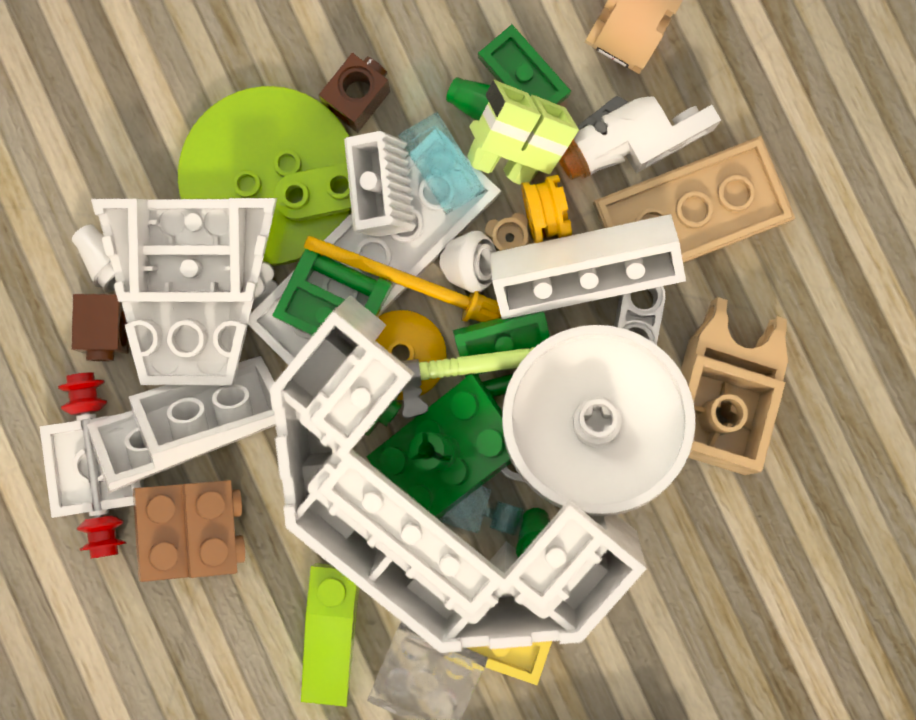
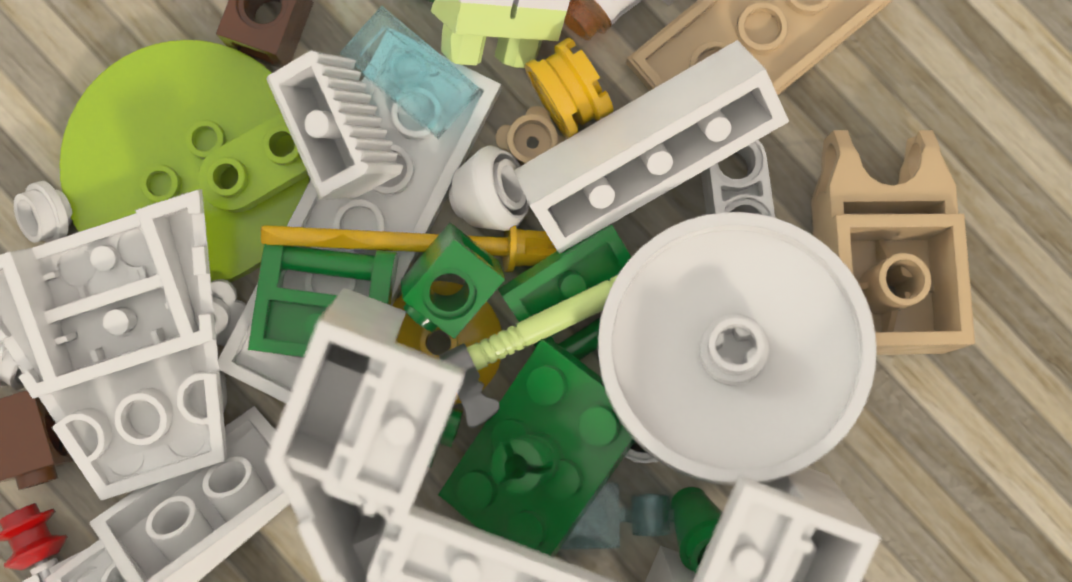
camera: 20 degrees left, 0 degrees up
(160, 177) = (42, 212): none -> white plate
(429, 296) = (458, 255): none -> green brick

